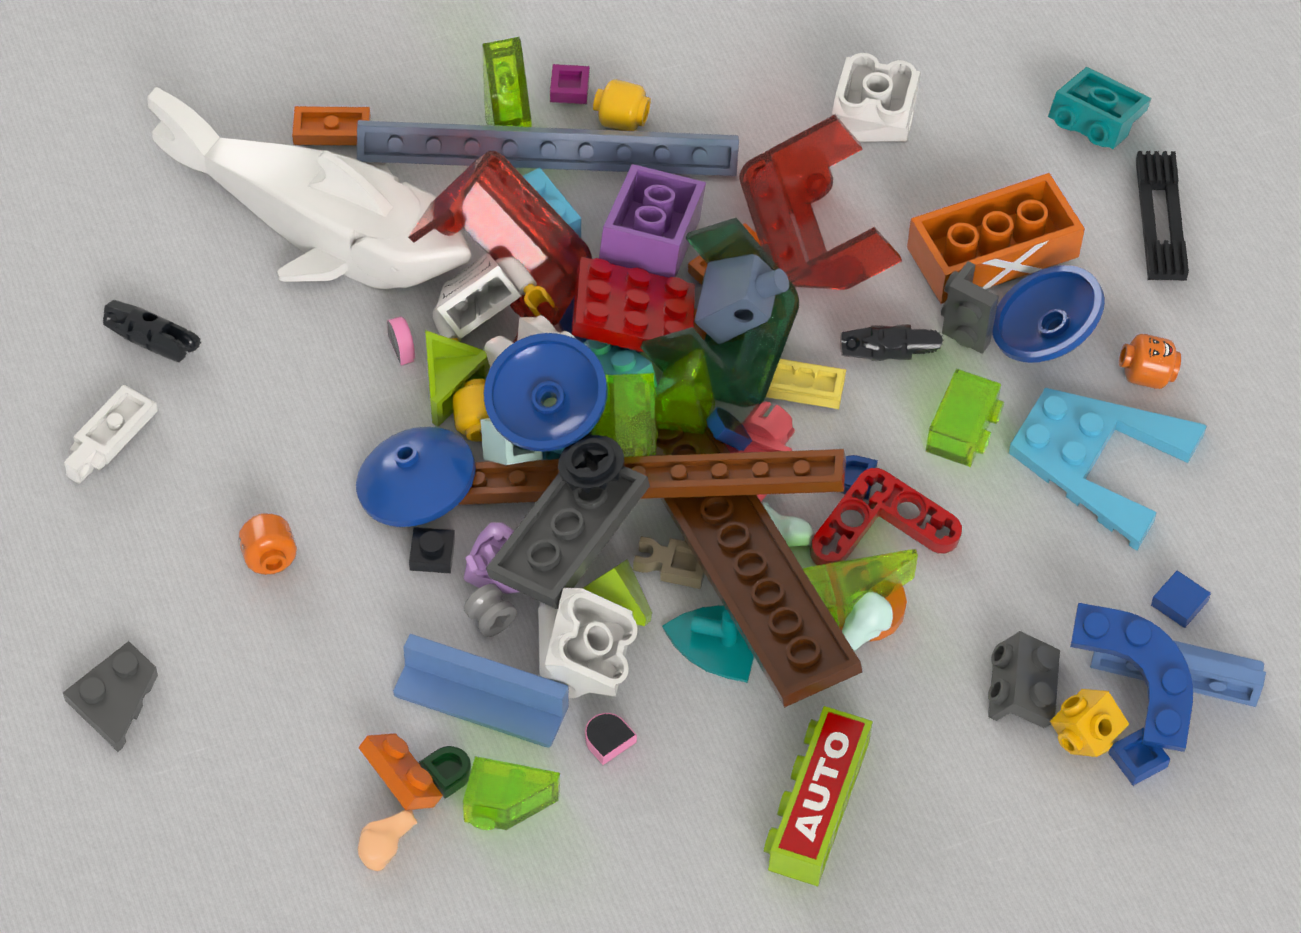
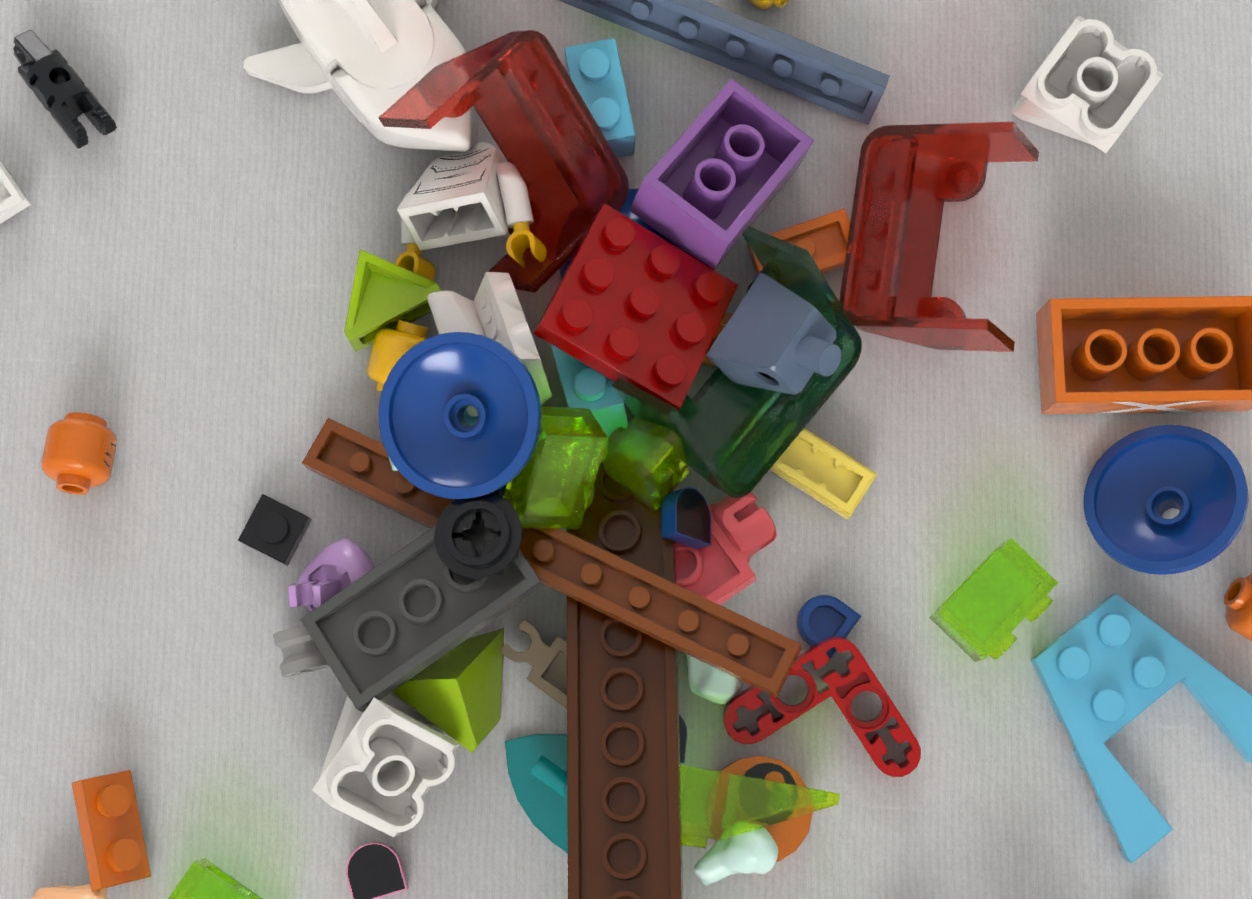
camera: 20 degrees right, 25 degrees up
(401, 340) = (354, 216): bright pink tile -> none
(415, 476) = (308, 442): blue dish -> none
(449, 769) = (172, 840): dark green tile -> none
(482, 691) = (246, 754): medium blue panel -> none
(889, 342) = (951, 453): black hinge -> none
(968, 310) = (1060, 458): dark grey bracket -> none

